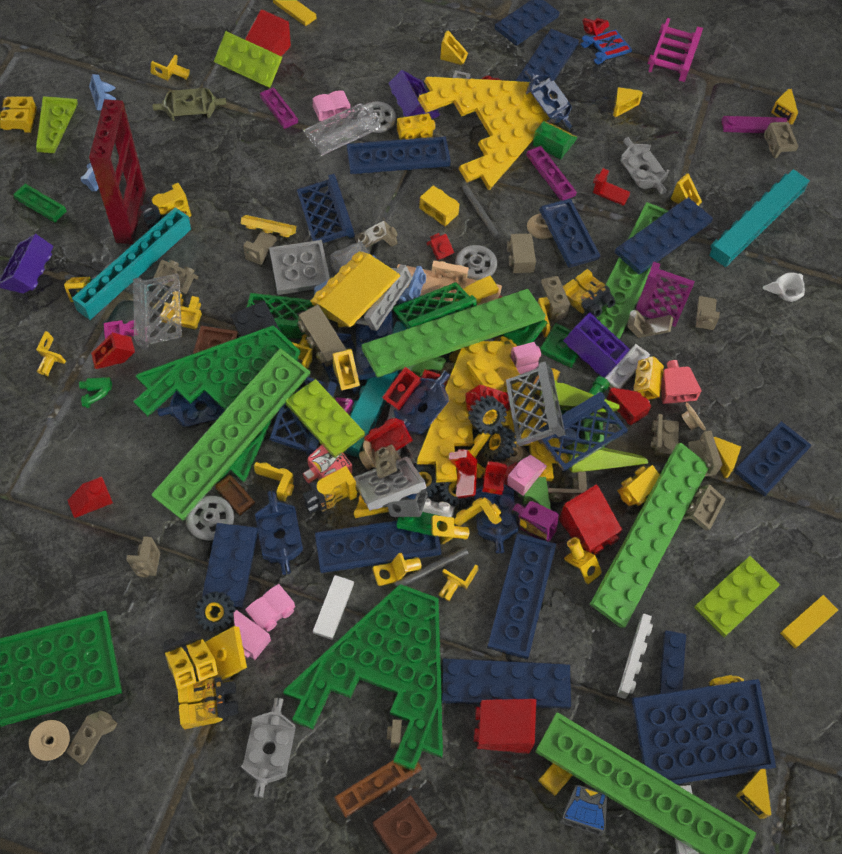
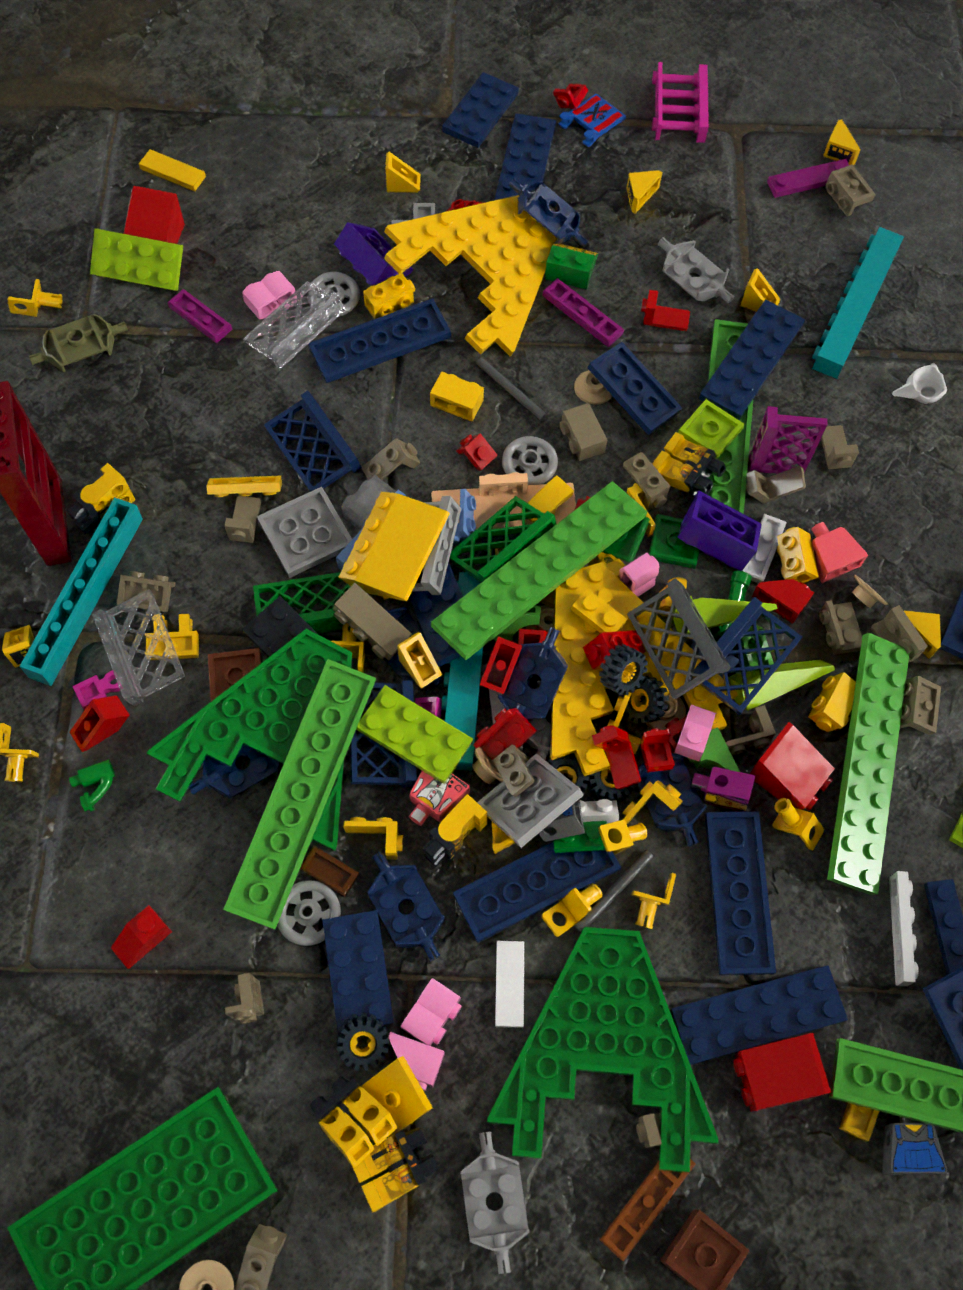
camera: 15 degrees left, 5 degrees up
(615, 273) = (711, 428): none -> lime plate

